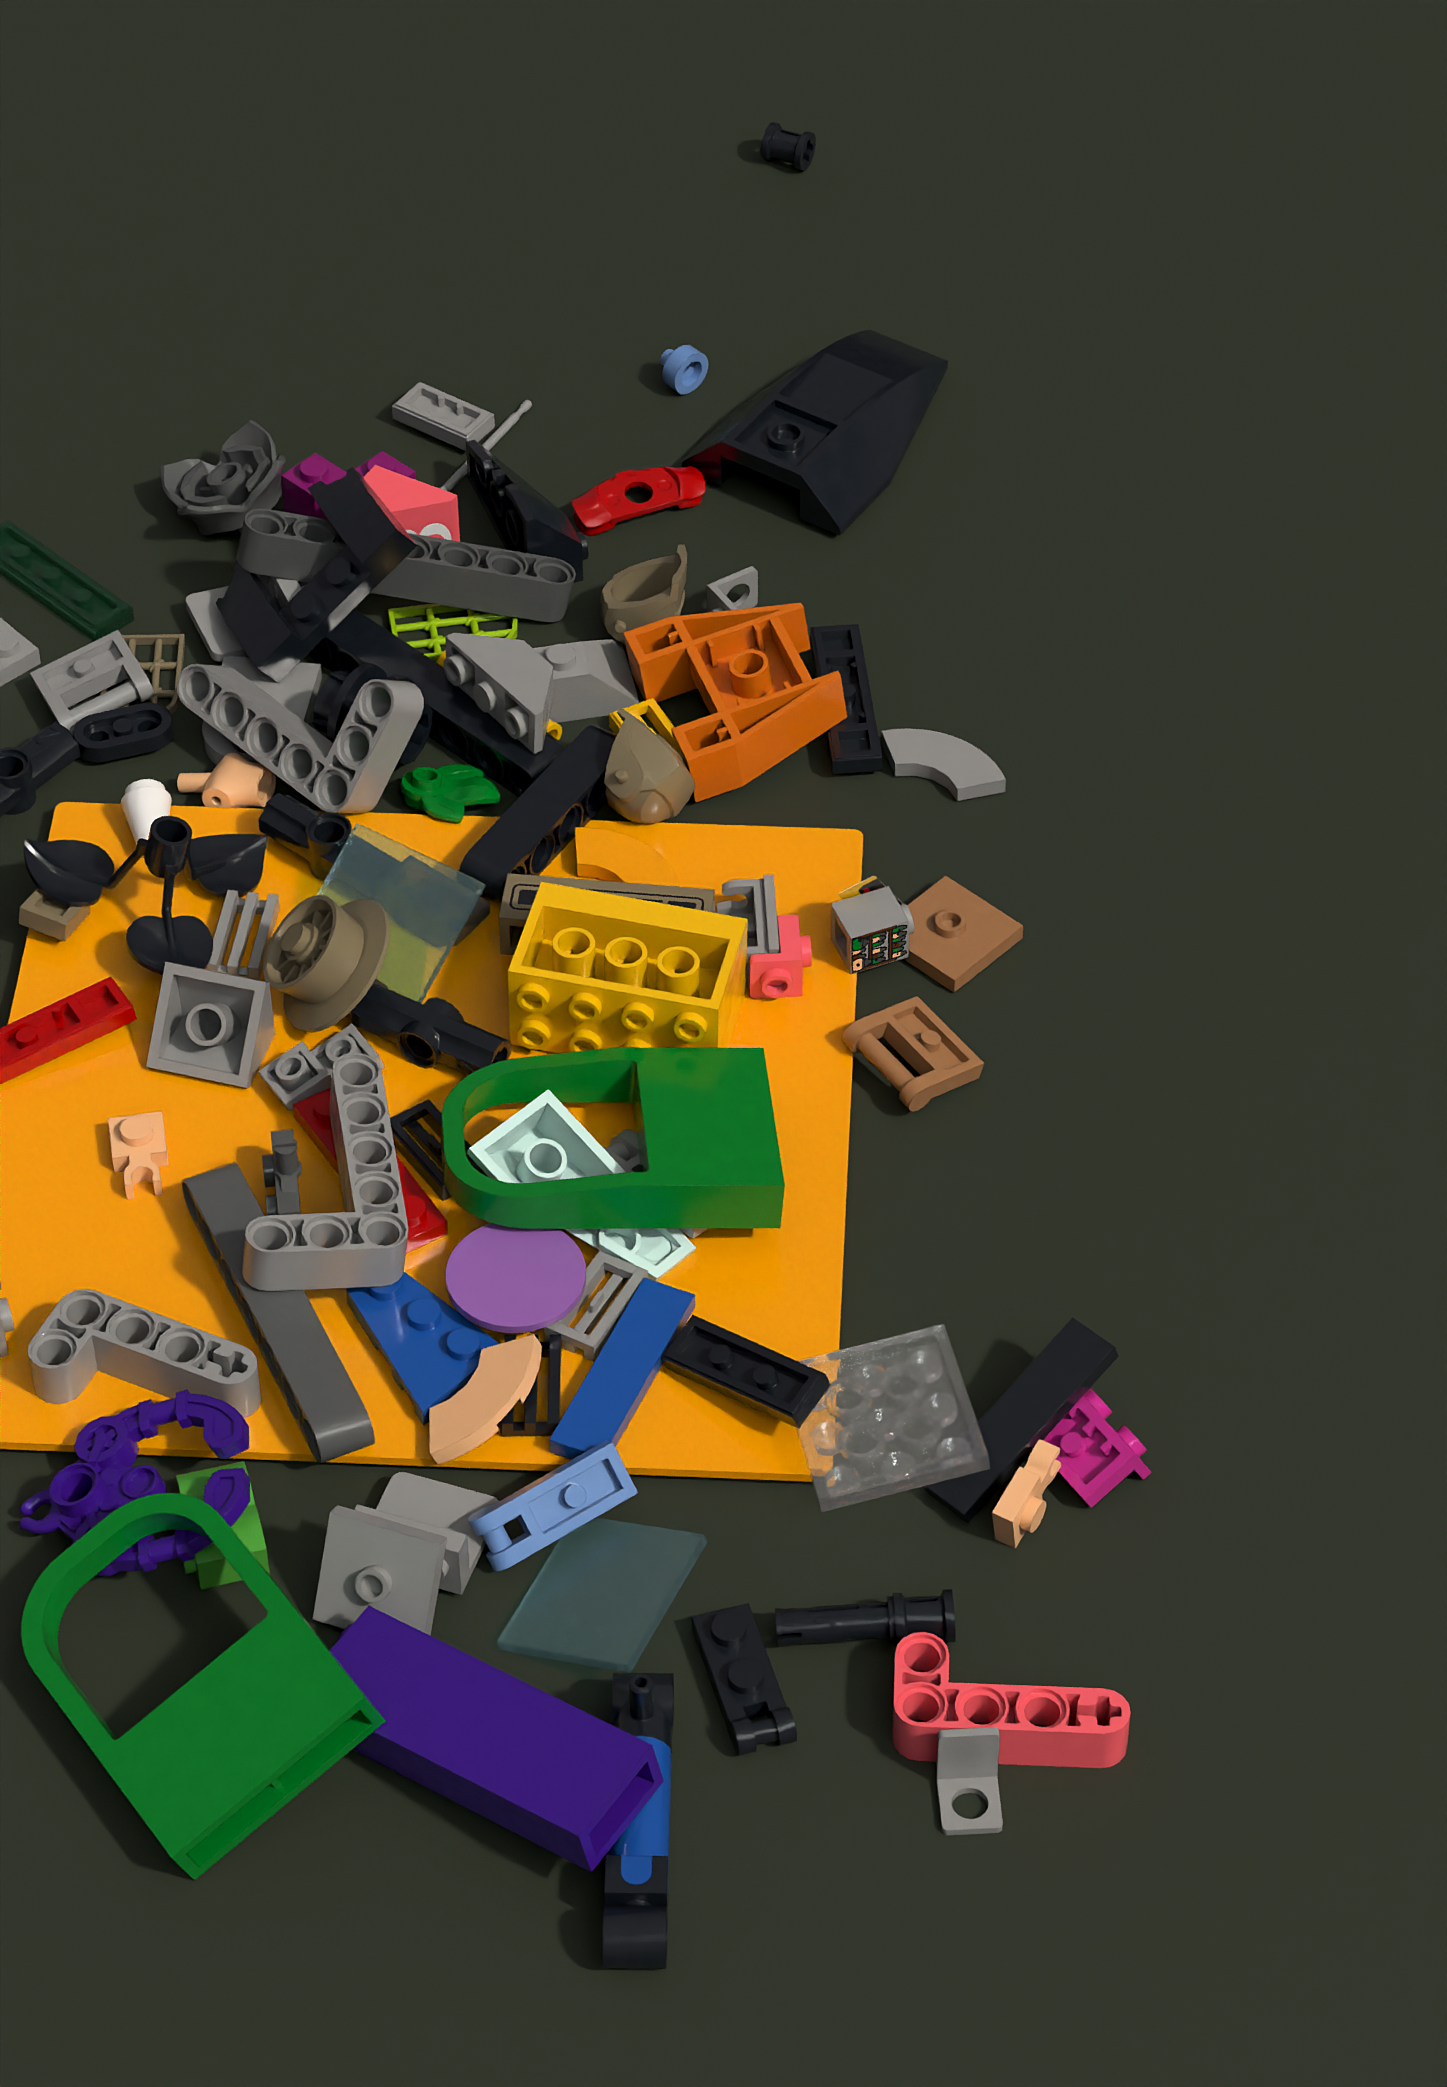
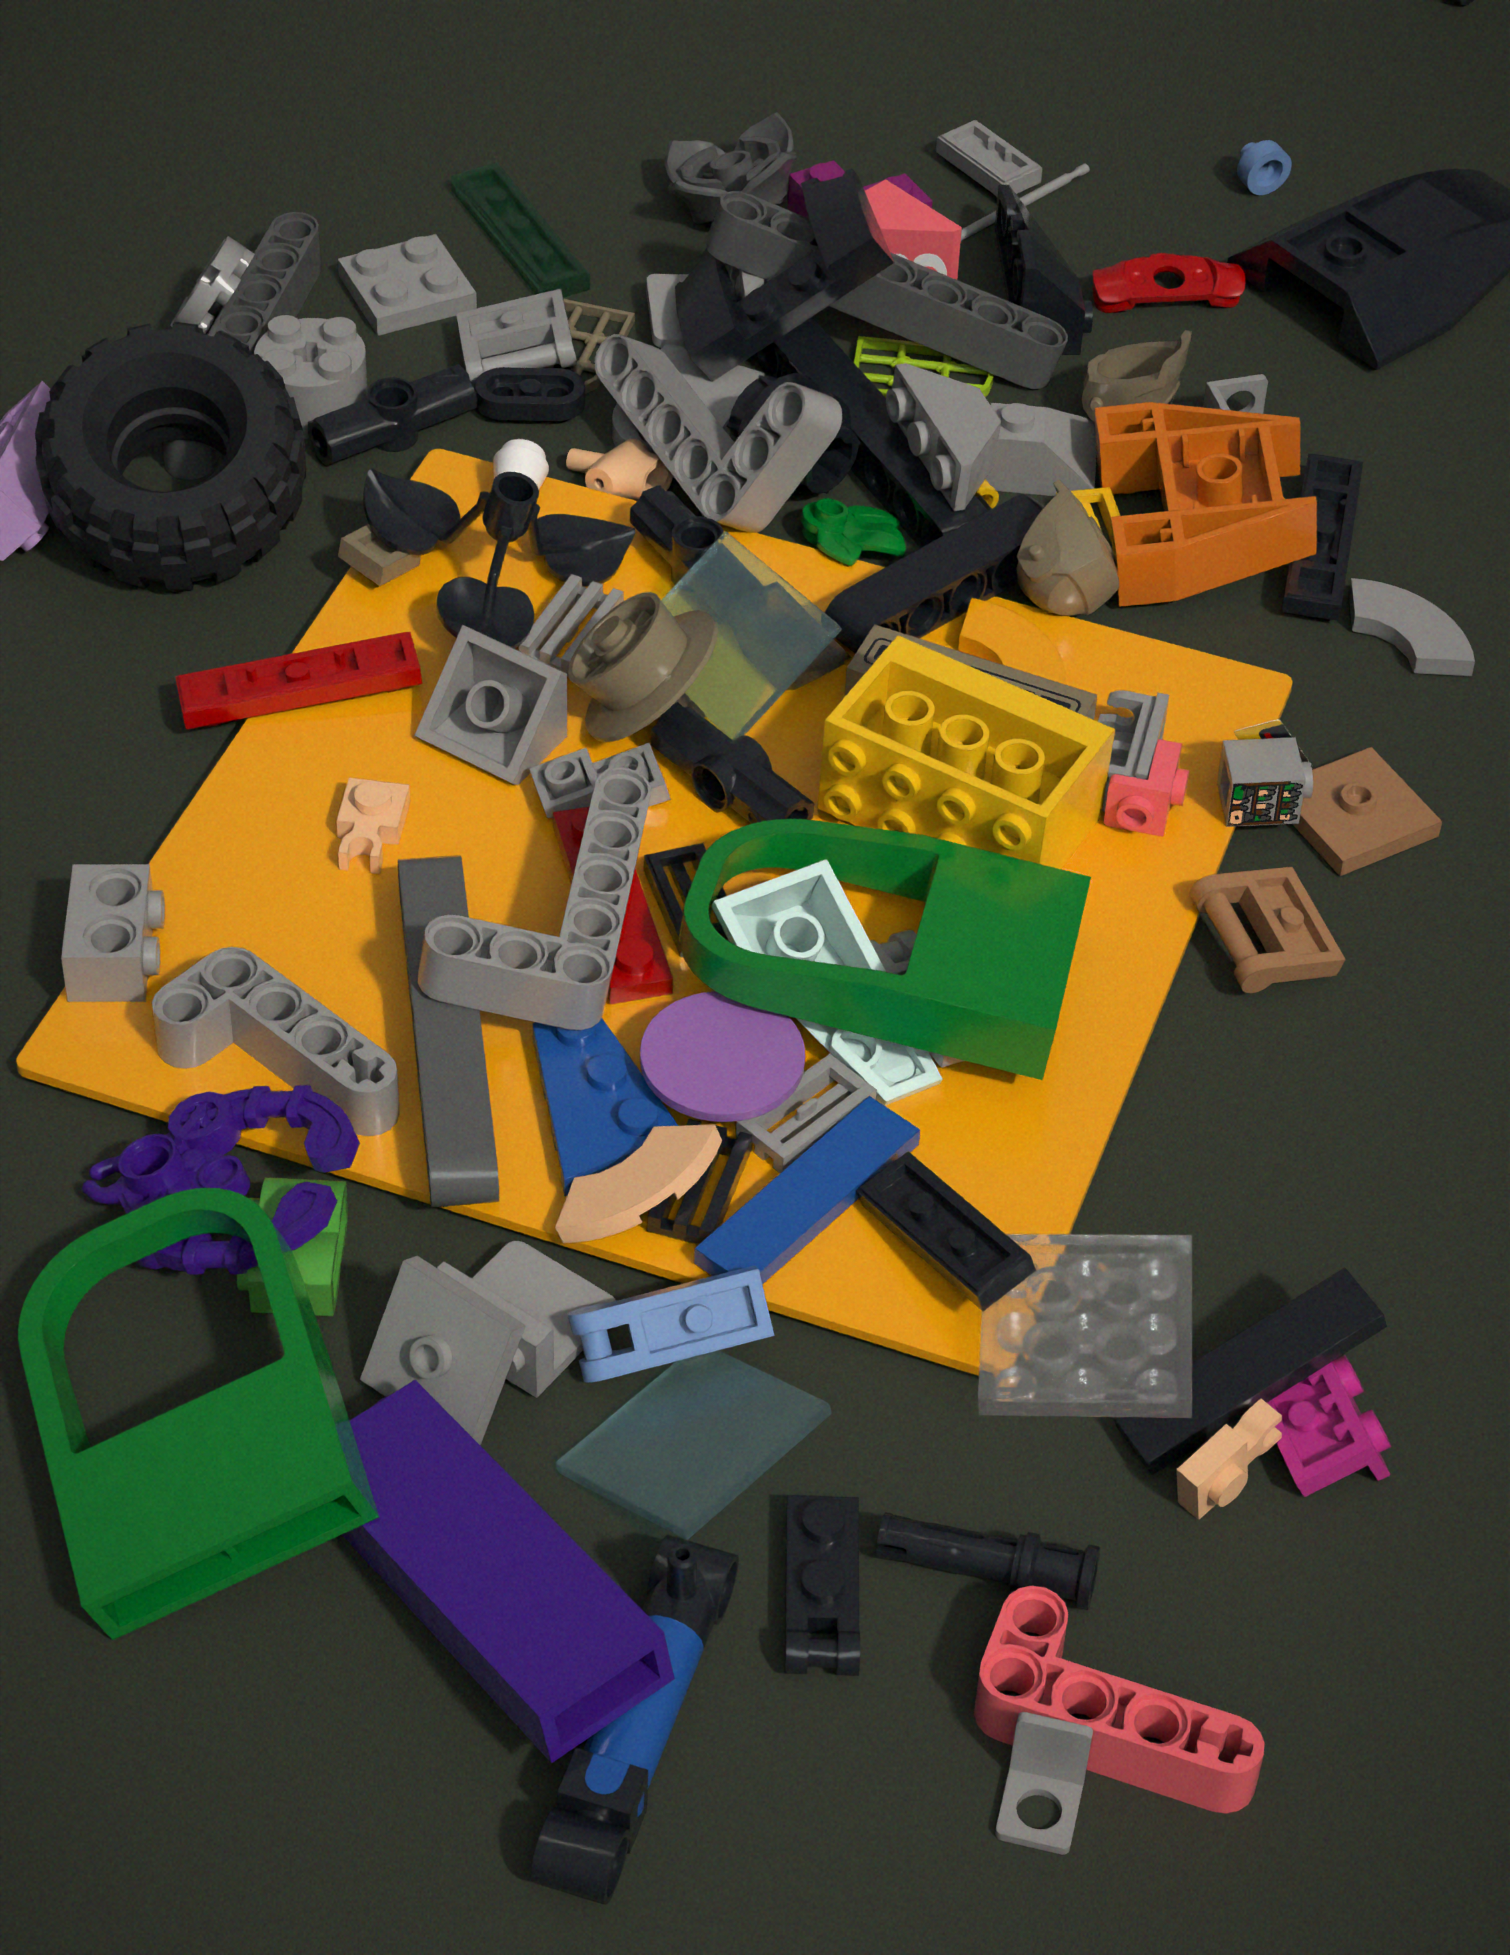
camera: 15 degrees right, 0 degrees up
(282, 1172) = (510, 881): dark grey plate -> none

